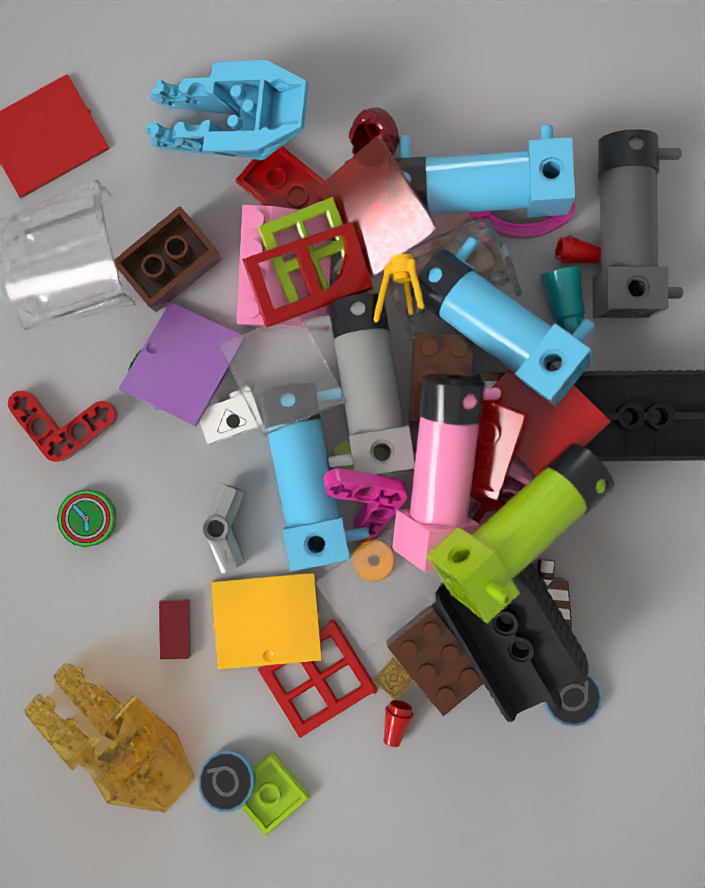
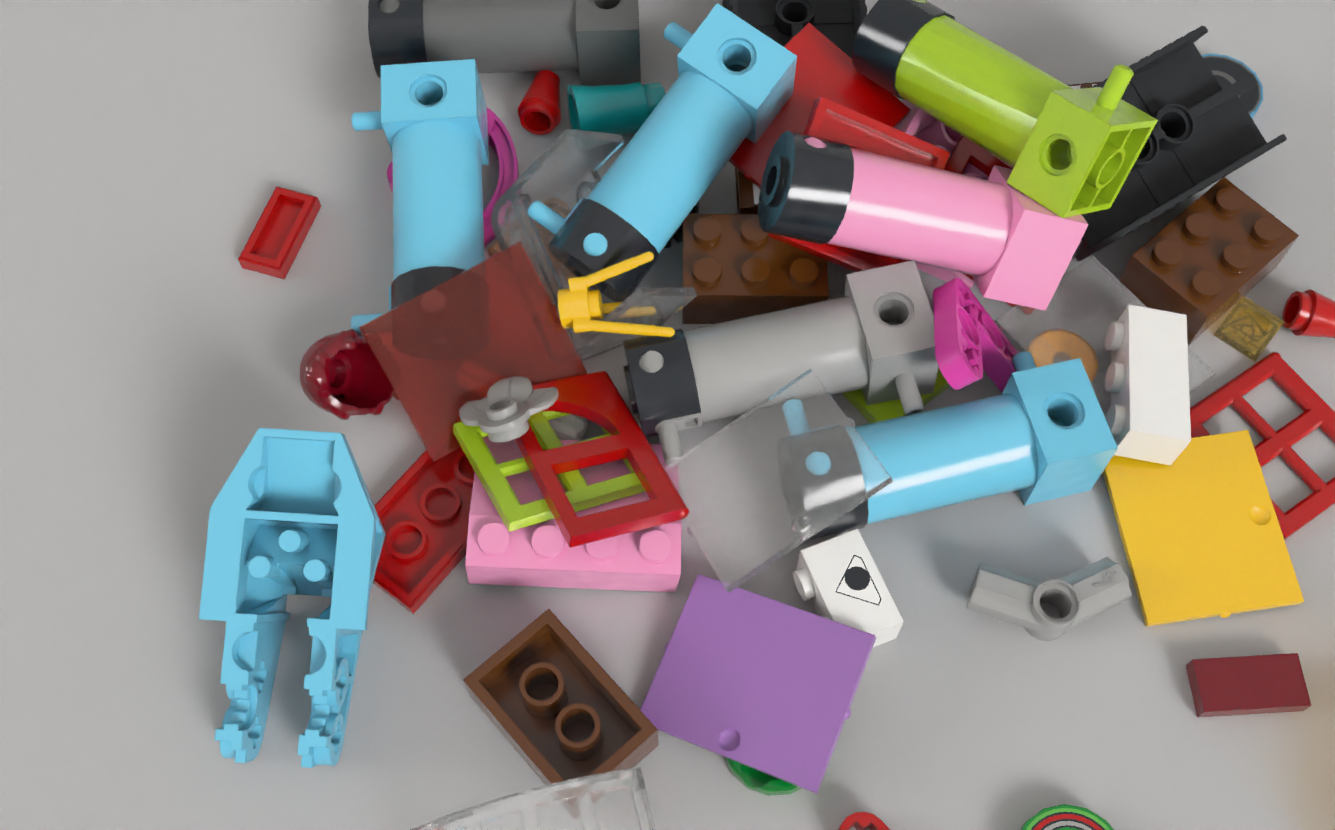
camera: 90 degrees left, 25 degrees down
(335, 225) = (507, 408): none -> light grey plate
(348, 604) = (1149, 384): none -> white brick
(485, 90) = (279, 232): none -> red tile

